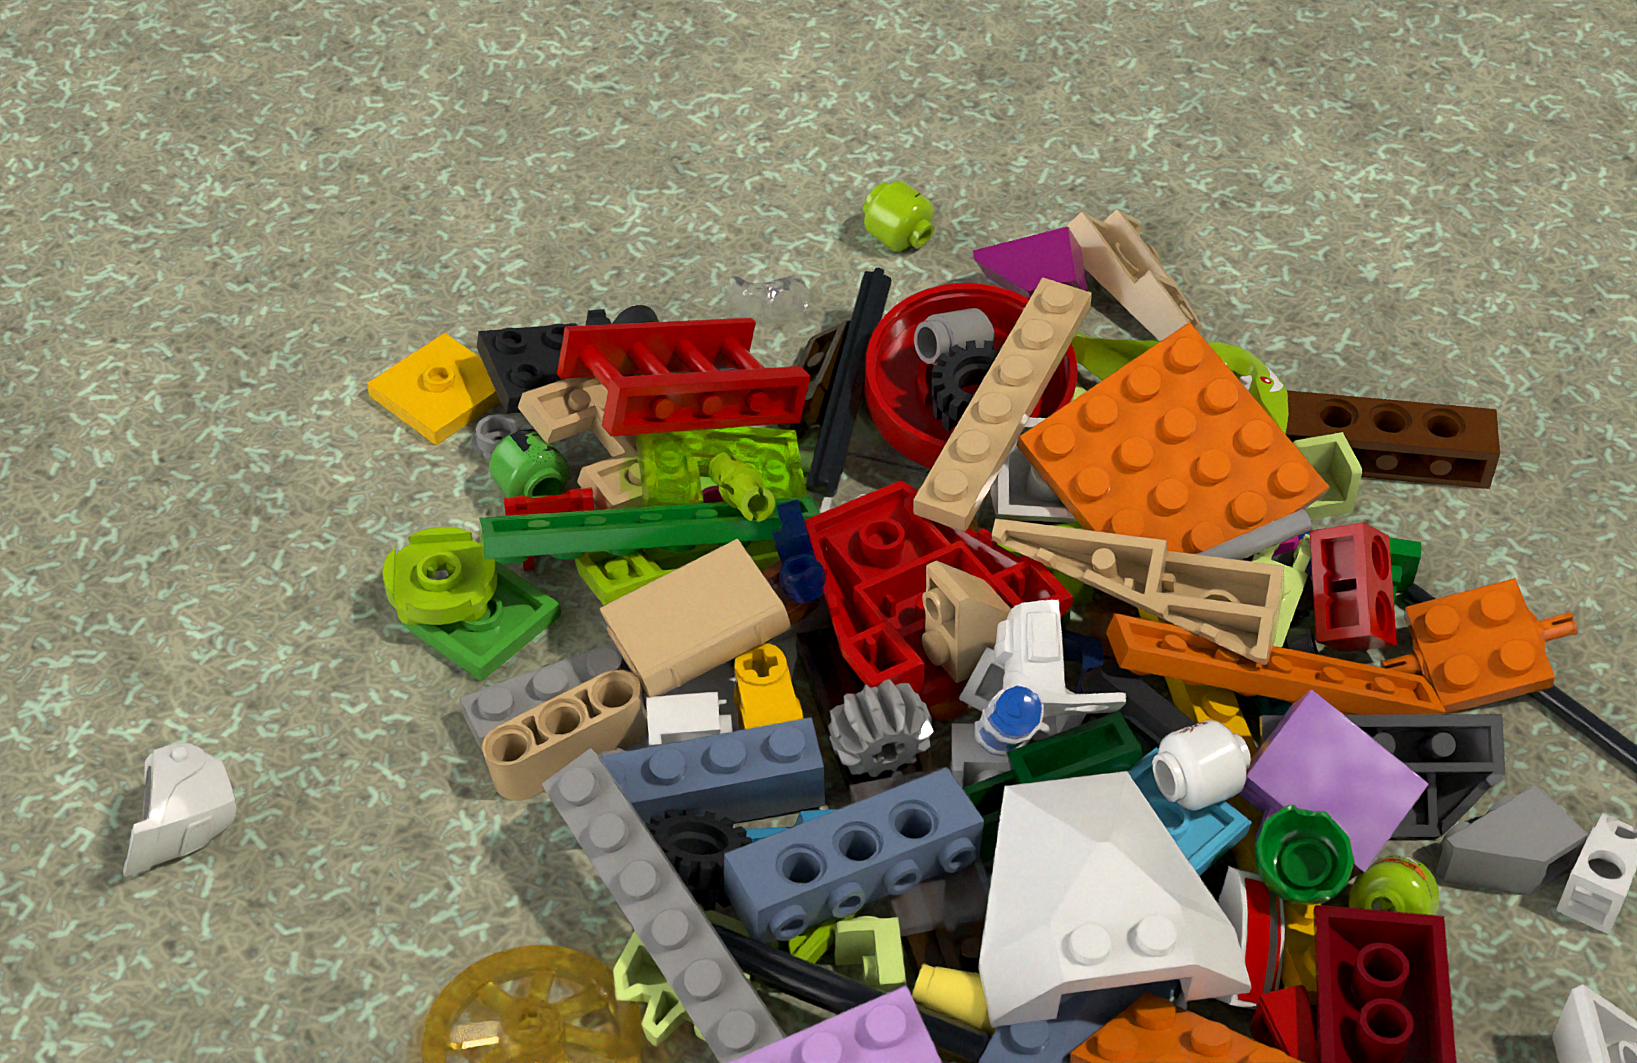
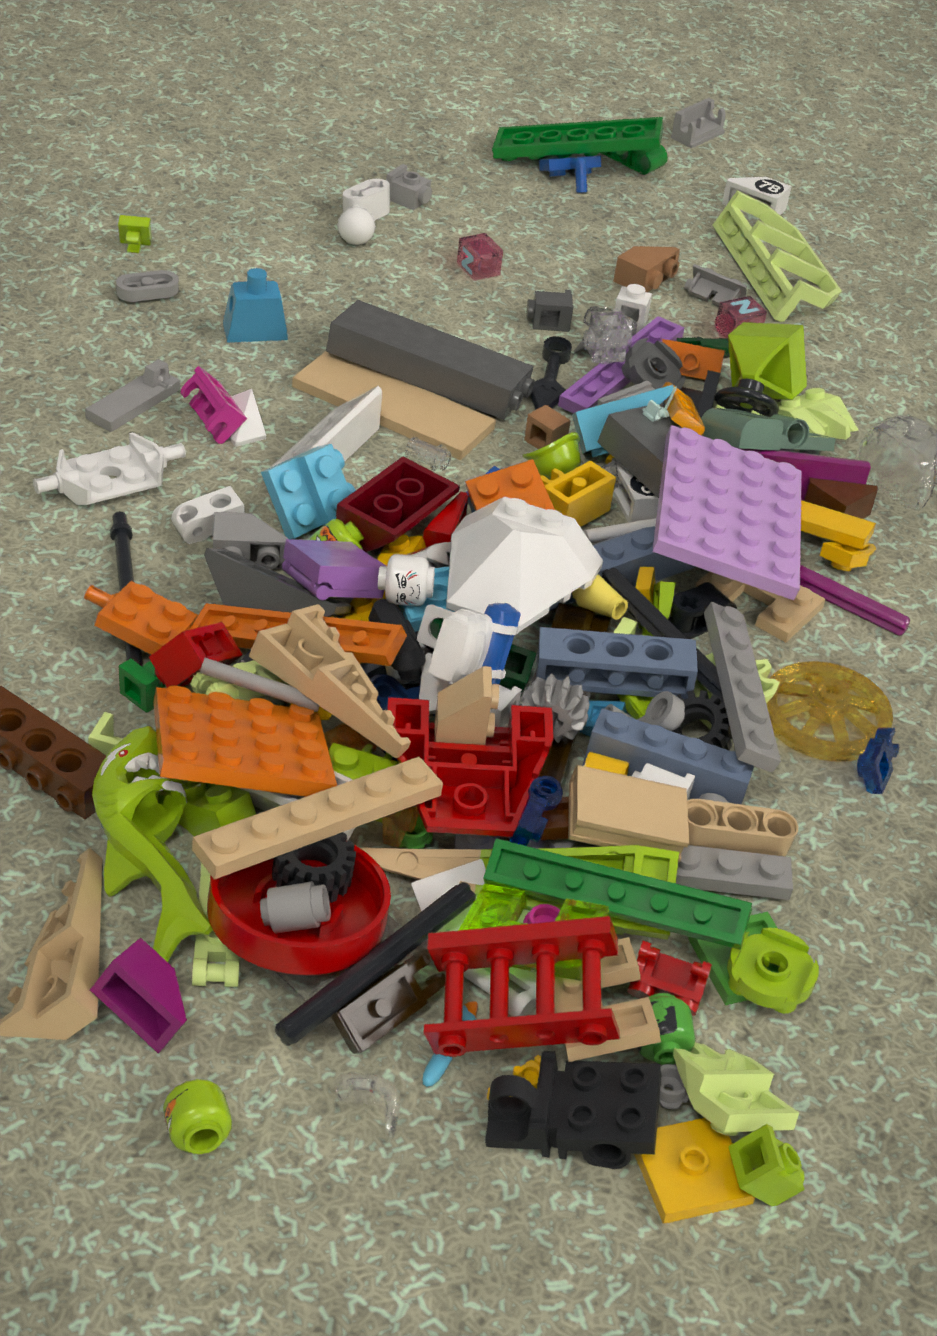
camera: 155 degrees left, 5 degrees down
(362, 389) = (775, 1163): none -> lime brick
(419, 960) = (875, 762): none -> clear blue plate
(428, 439) = (732, 1091): none -> yellowish green plate
(740, 812) = (664, 710): none -> light grey plate
(742, 486) = (537, 880): lime pin -> none
(1303, 856) = (386, 540): green hair -> none
(1523, 961) = (307, 489): none -> medium azure plate

